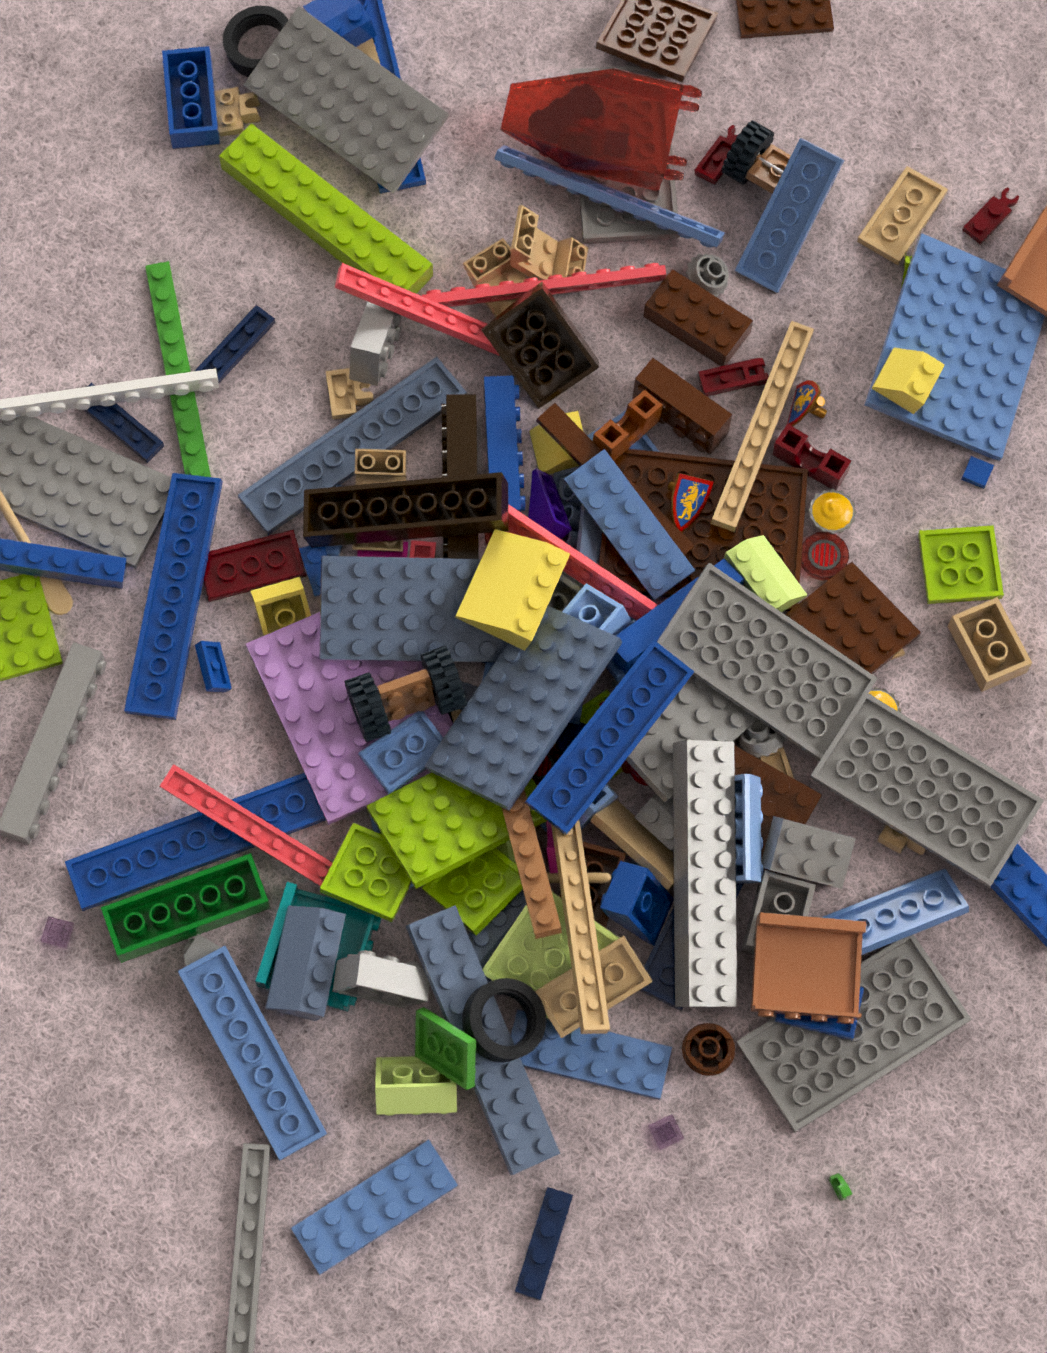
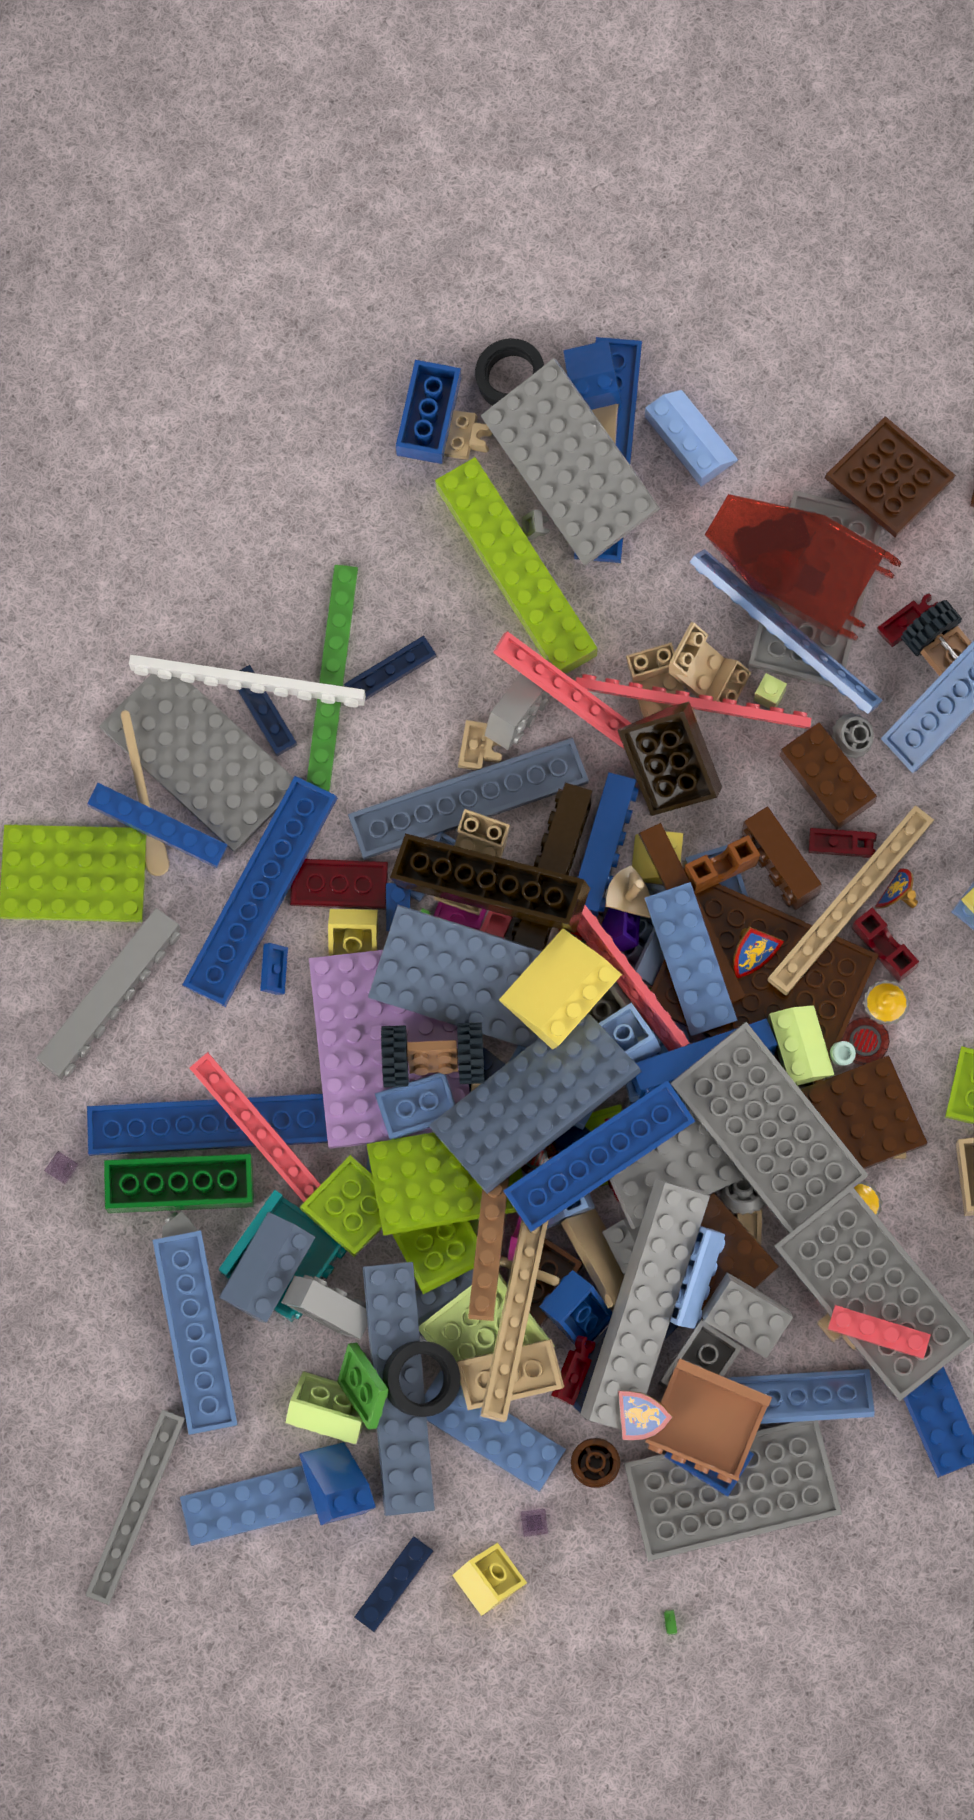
camera: 25 degrees right, 5 degrees up
(330, 170) = (533, 524): none -> light grey tile
(451, 51) = (689, 436): none -> light blue slope
(451, 1159) = (336, 1483): none -> blue slope
(544, 483) = (628, 893): none -> tan shield
(614, 255) = (770, 691): none -> yellowish green brick
(640, 1204) = (489, 1579): none -> light yellow slope
(655, 963) = (574, 1370): none -> dark red plate
(741, 983) = (641, 1415): none -> shield
(807, 572) = (842, 1053): none -> light aqua tile
(946, 824) = (879, 1332): none -> coral plate

